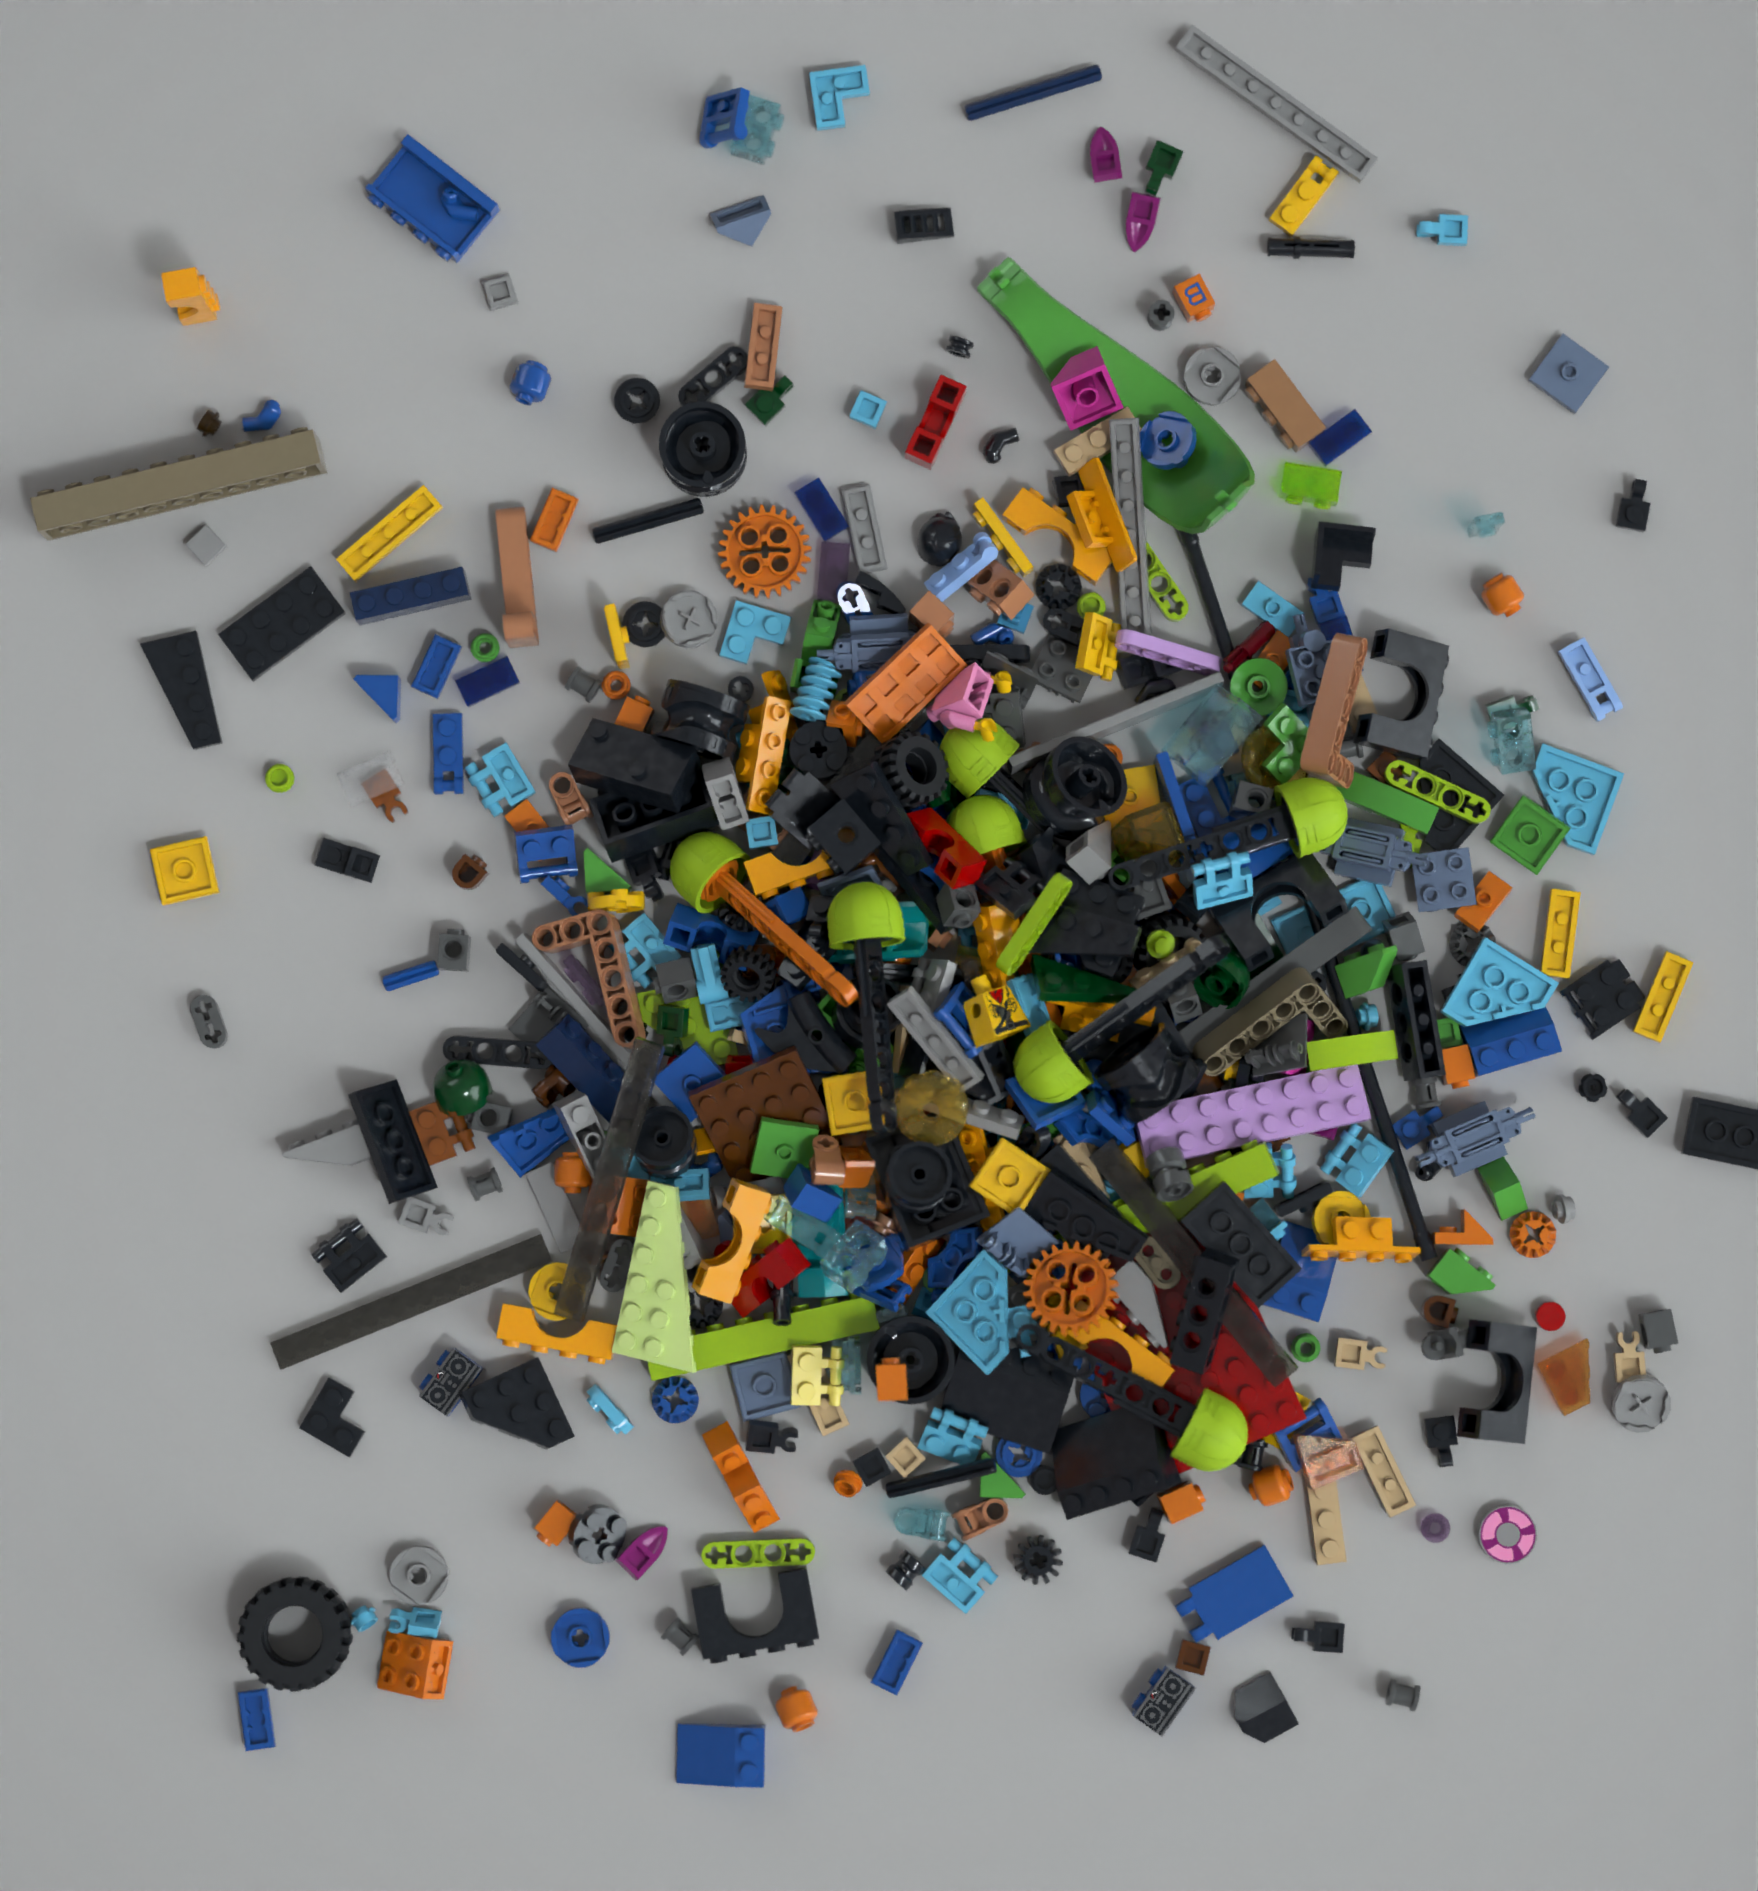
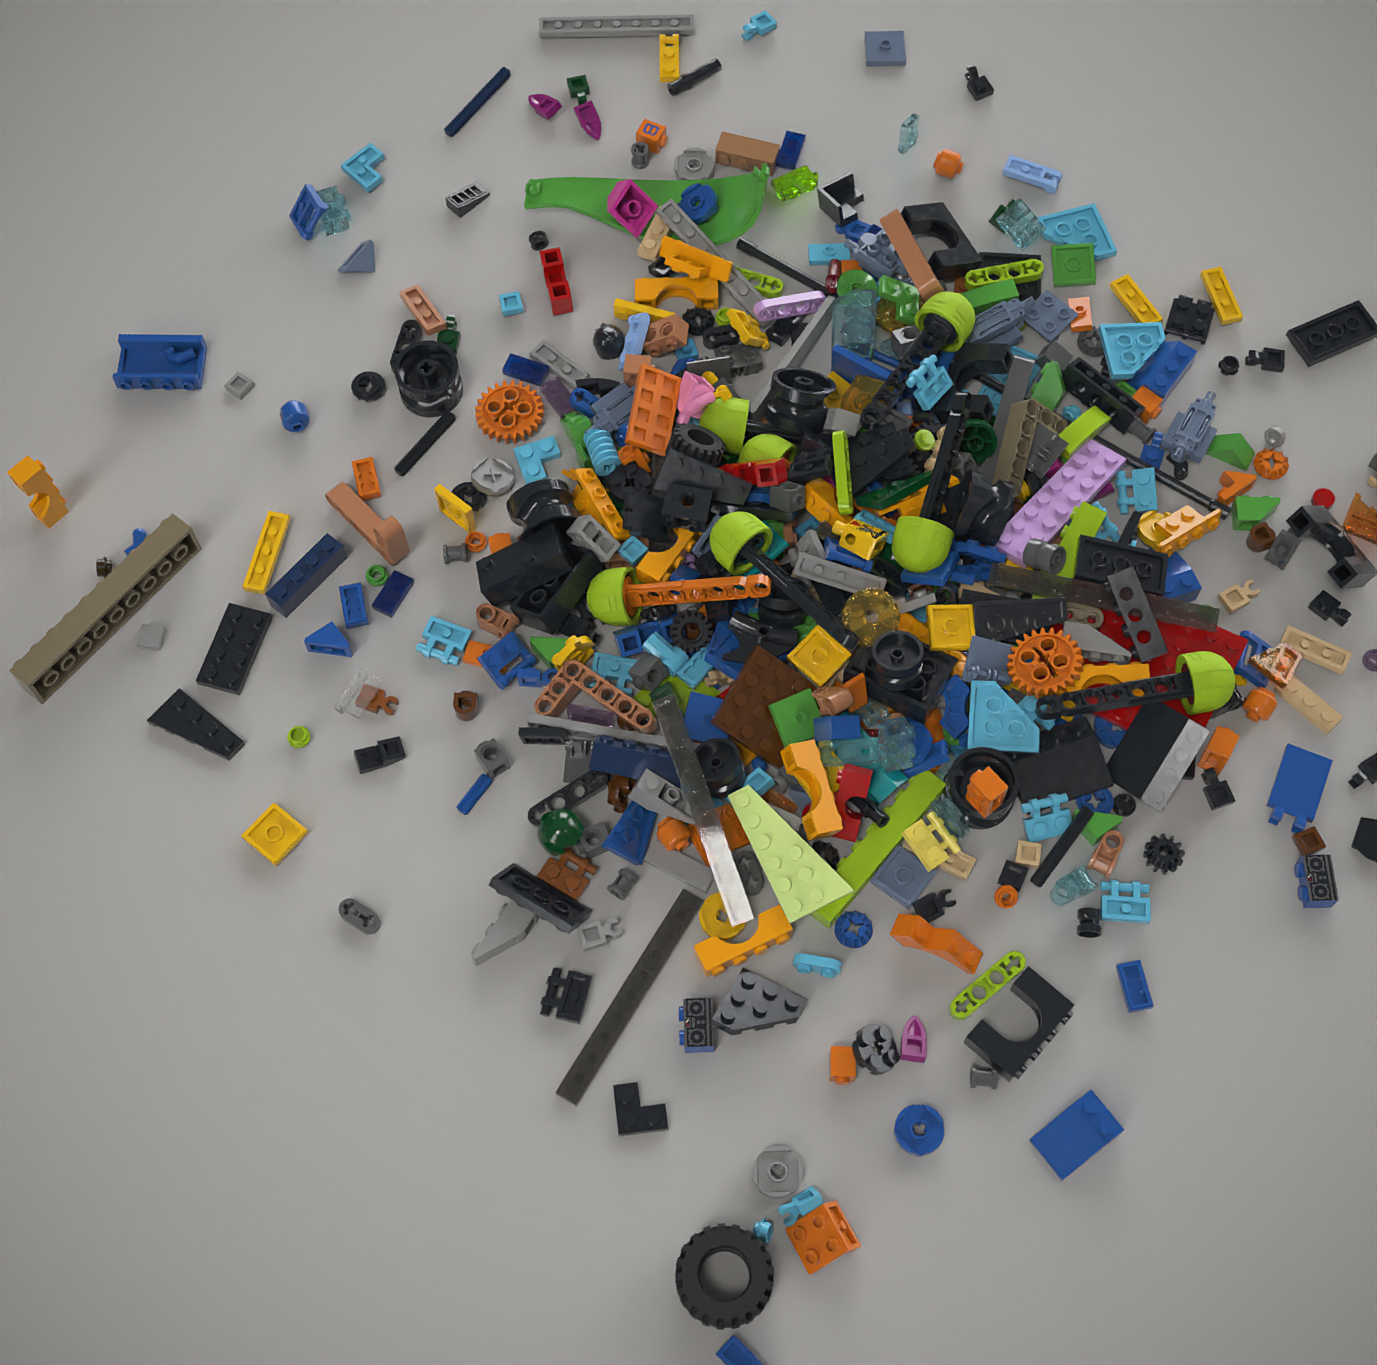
camera: 35 degrees left, 20 degrees down
(448, 752) = (398, 649): blue plate -> none
(796, 1709) = (1098, 1065): orange head -> none
(996, 443) = (600, 273): black arm -> none

